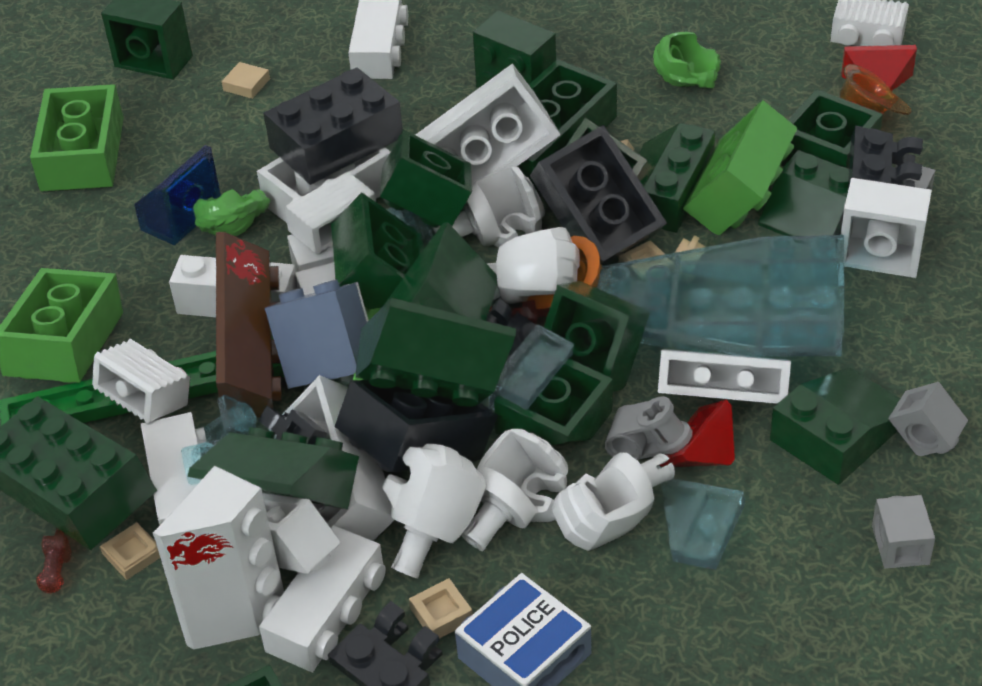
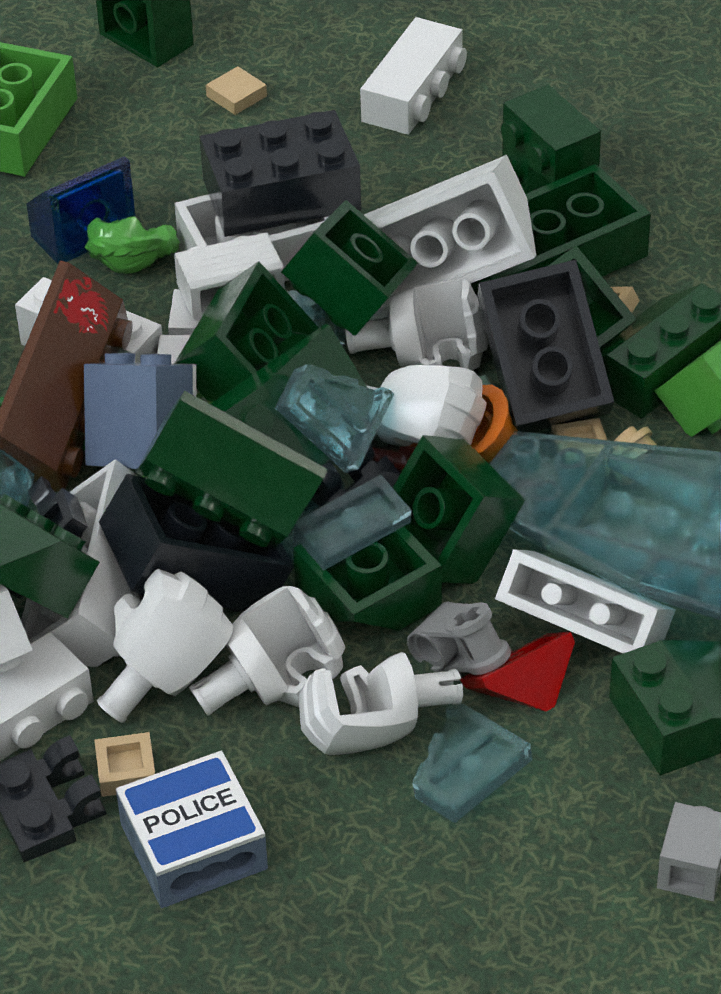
camera: 20 degrees right, 0 degrees up
(481, 287) = (334, 413): none -> clear light blue wing

